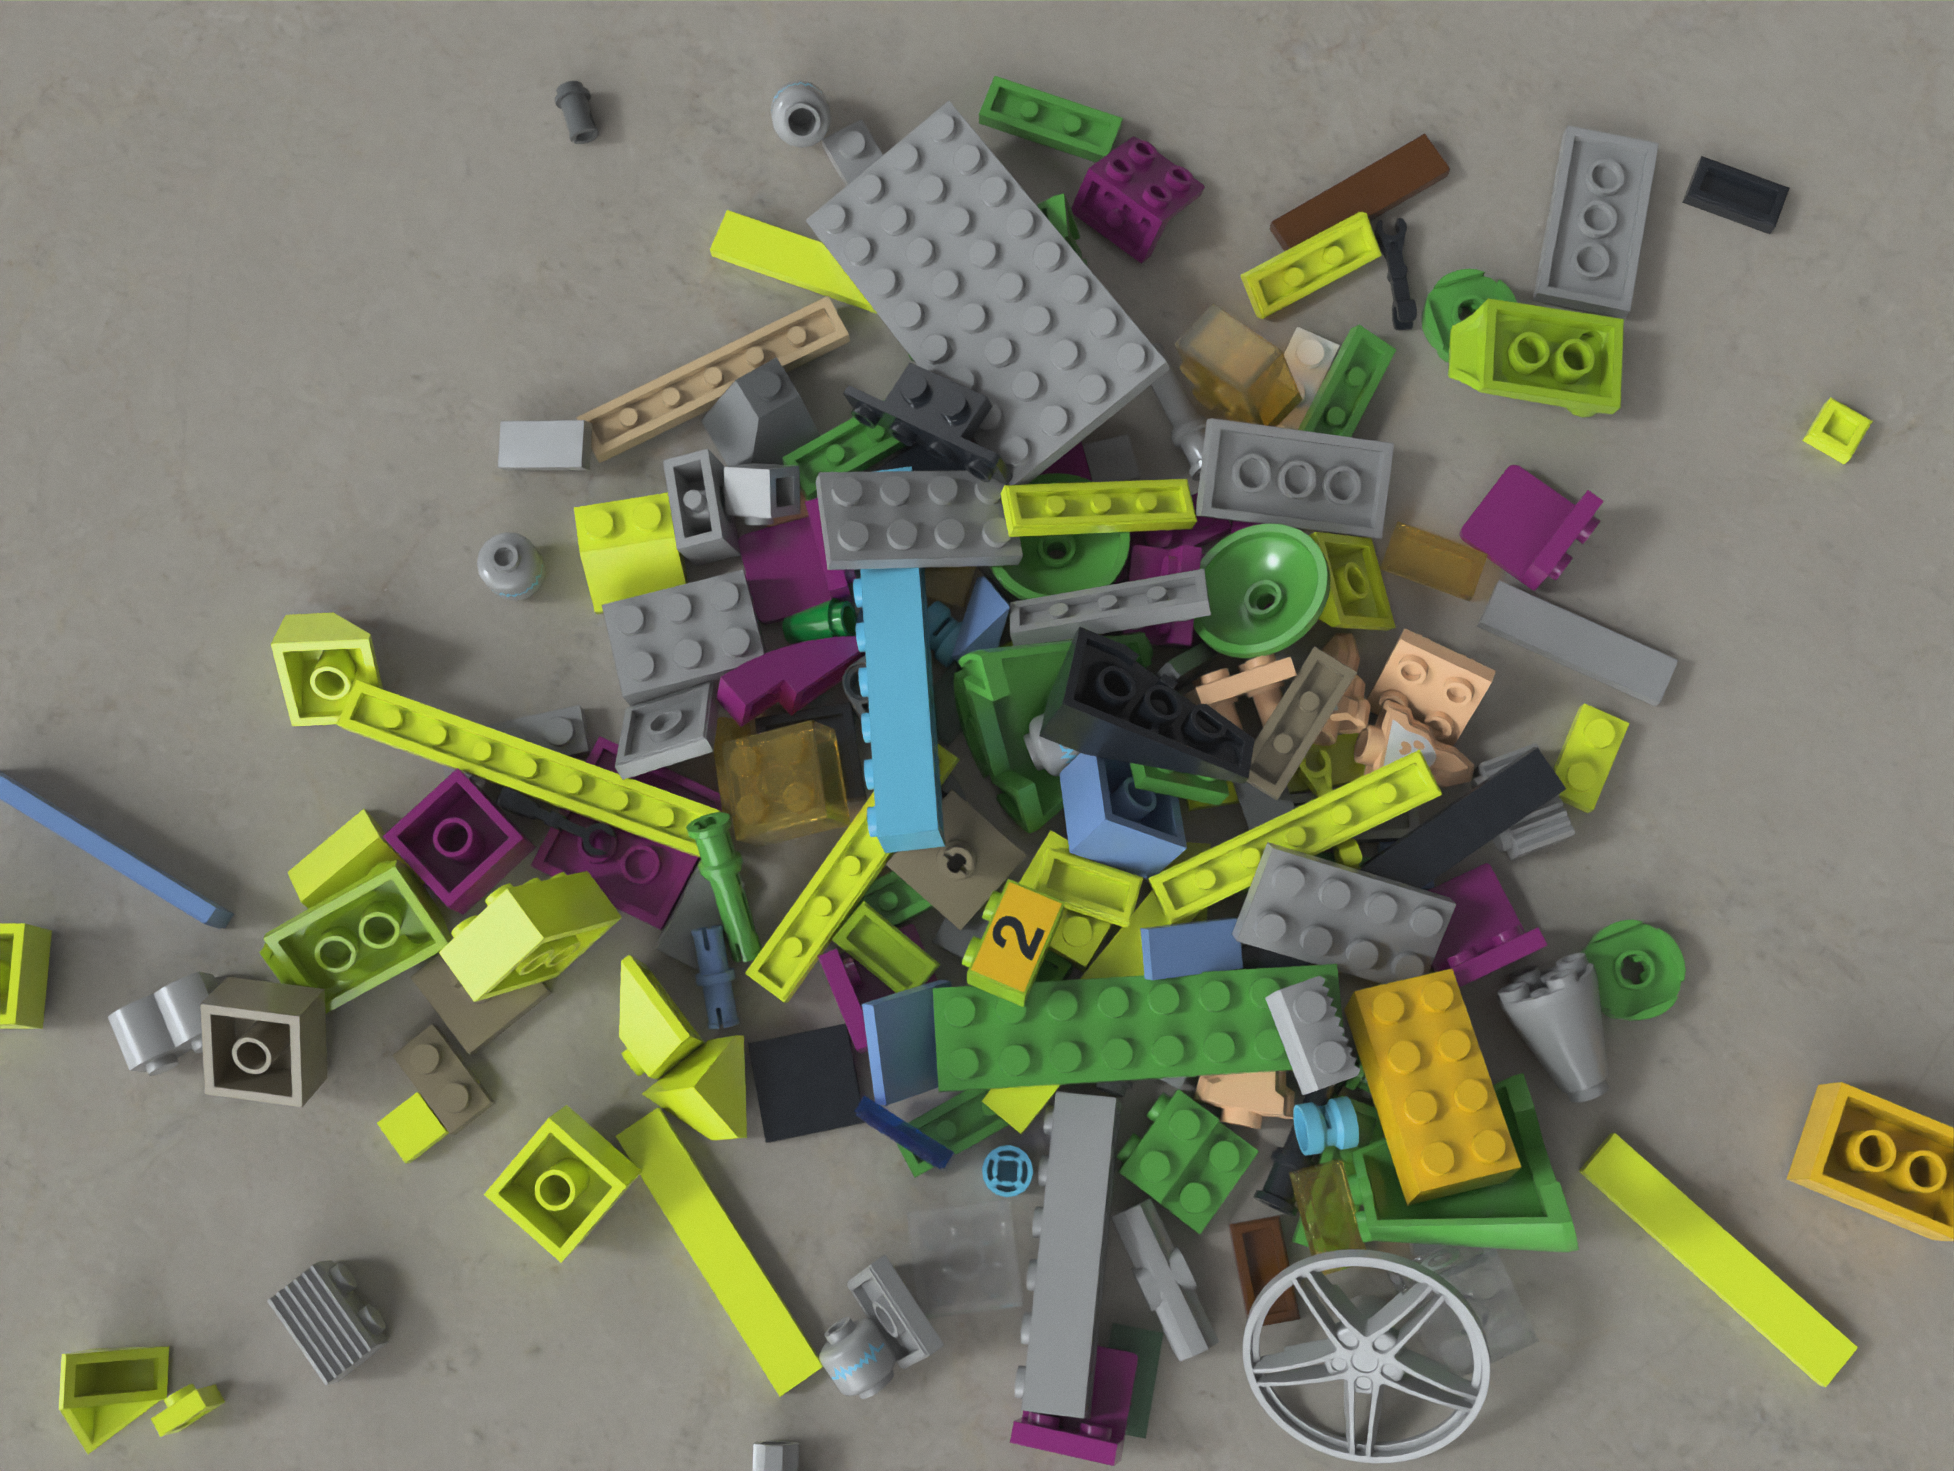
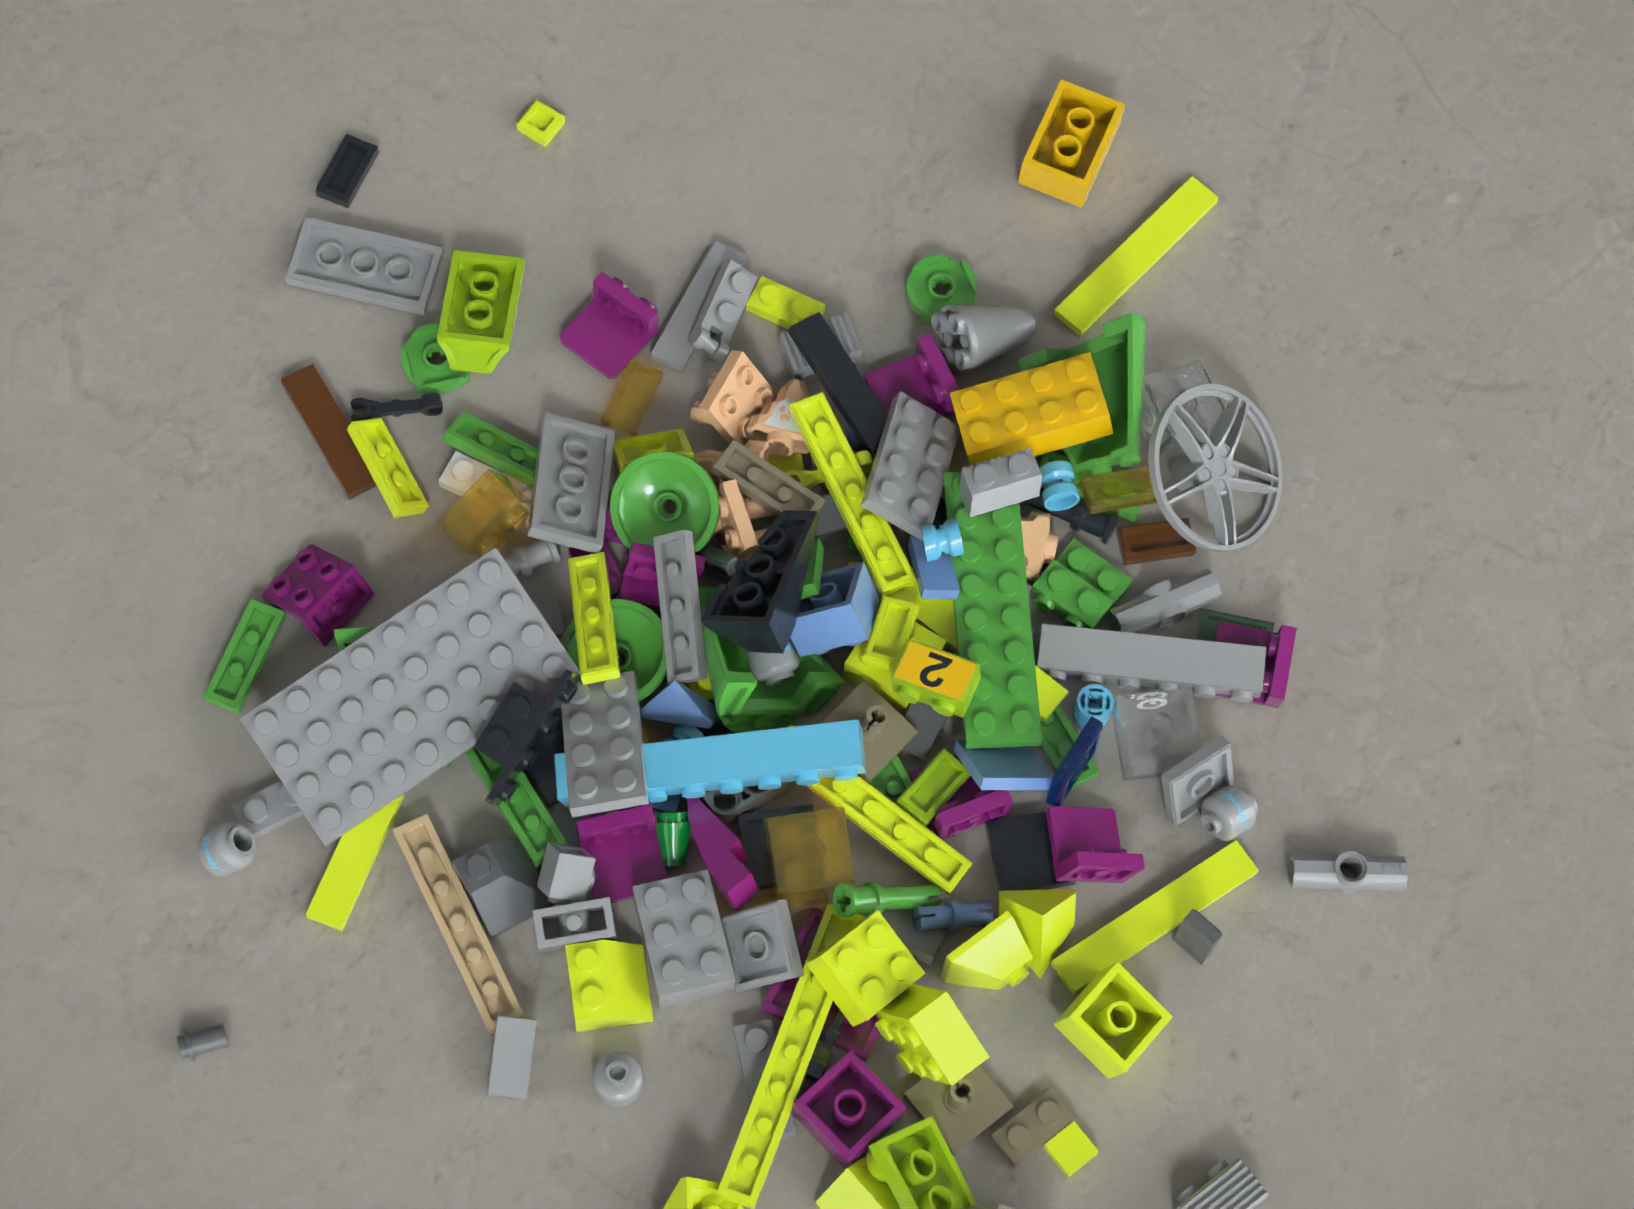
camera: 100 degrees left, 10 degrees down
(620, 852) = (865, 968): none -> neon yellow brick
(673, 1303) = (1197, 936): none -> dark grey tile
(807, 1158) = (1088, 846): none -> magenta bracket
(1222, 953) = (944, 539): none -> medium azure wheel
(1570, 671) = (722, 310): none -> light grey plate

